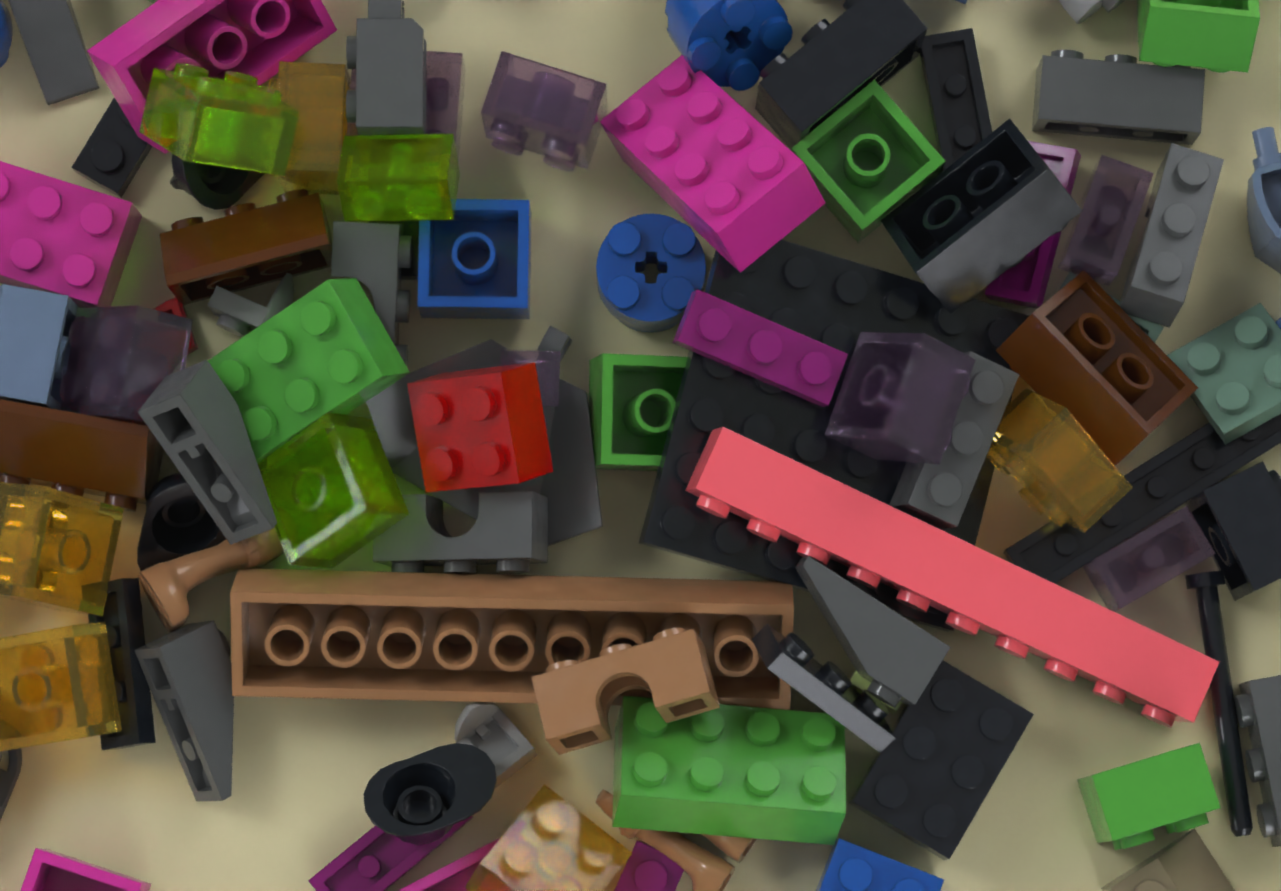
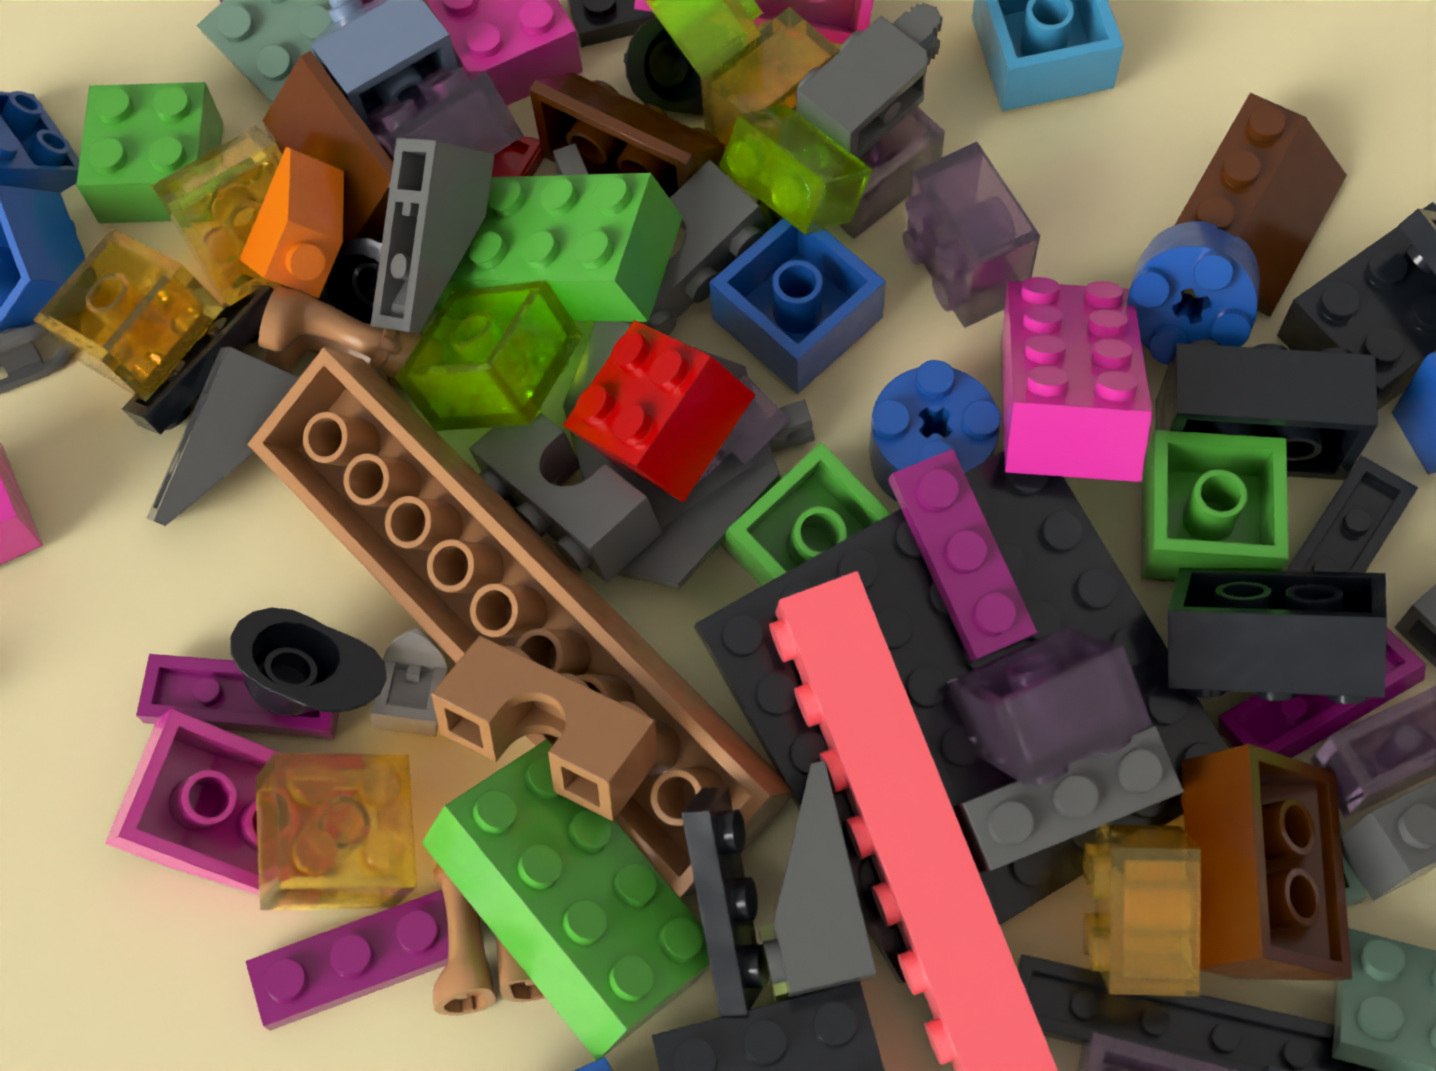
camera: 50 degrees right, 15 degrees down
(110, 524) = (298, 224): none -> orange slope

